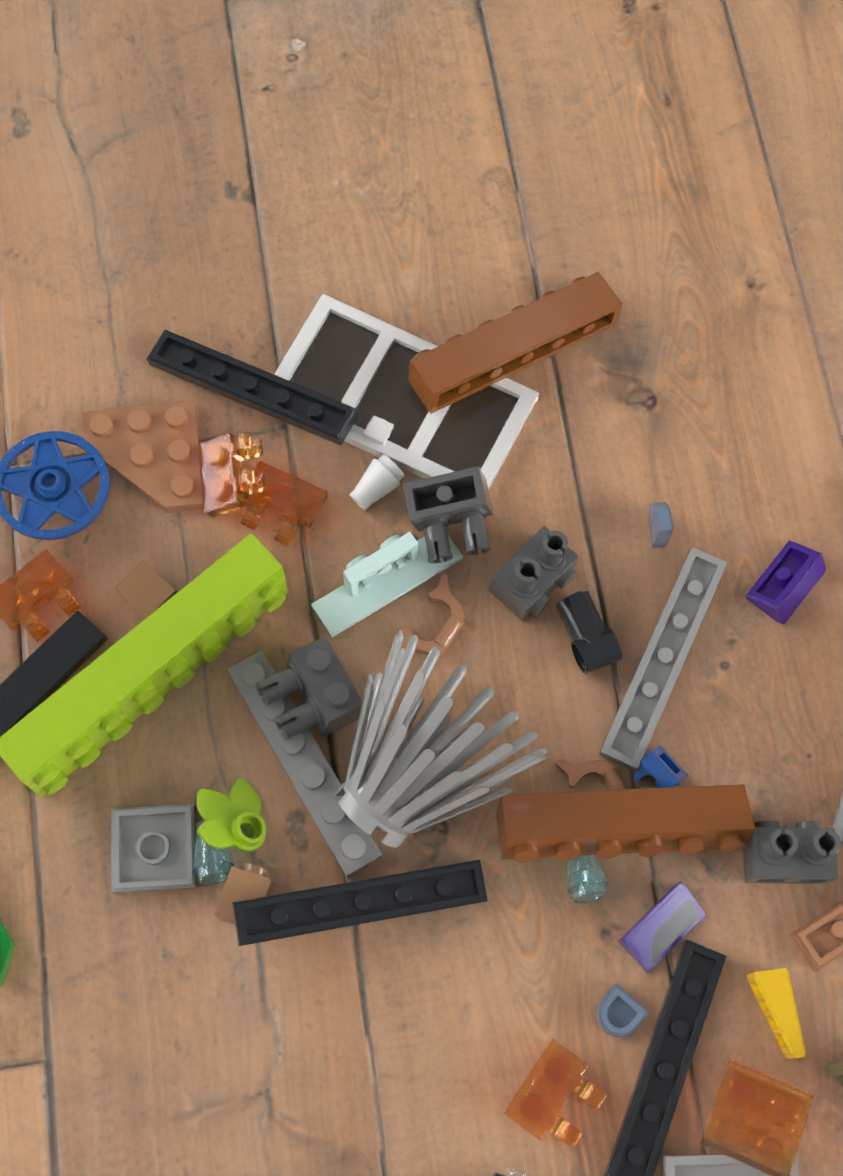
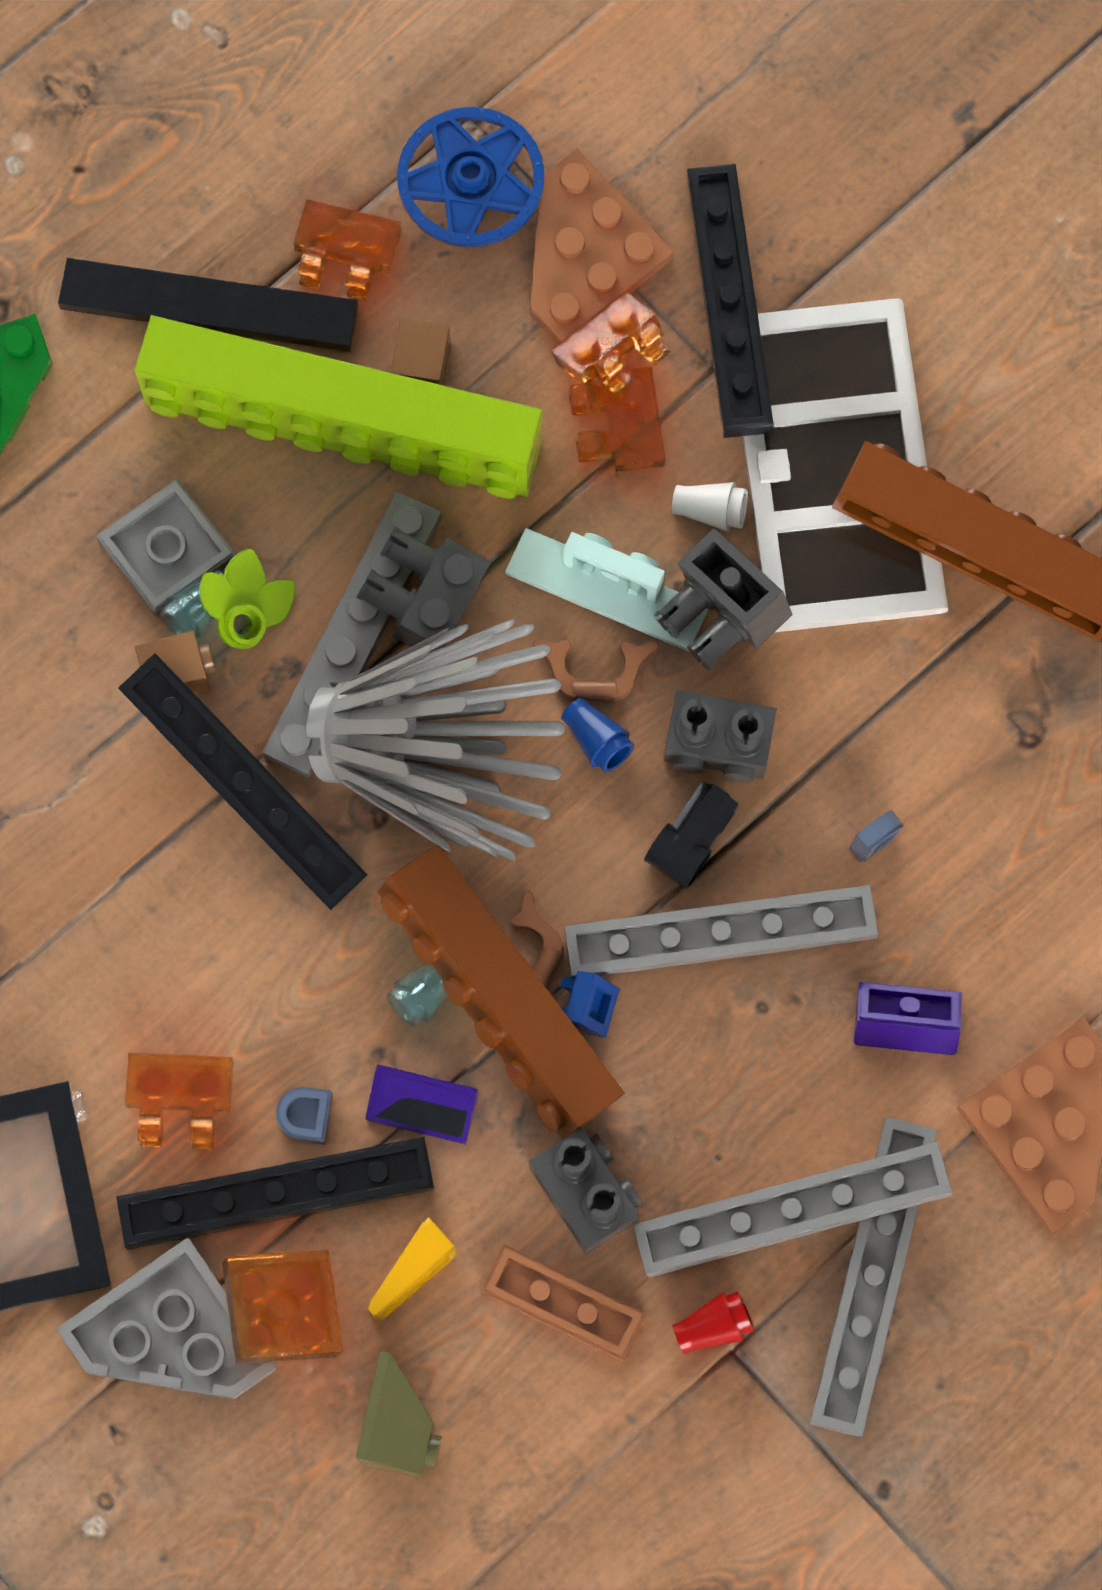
camera: 60 degrees right, 5 degrees up
(483, 648) = (599, 737): none -> blue cone

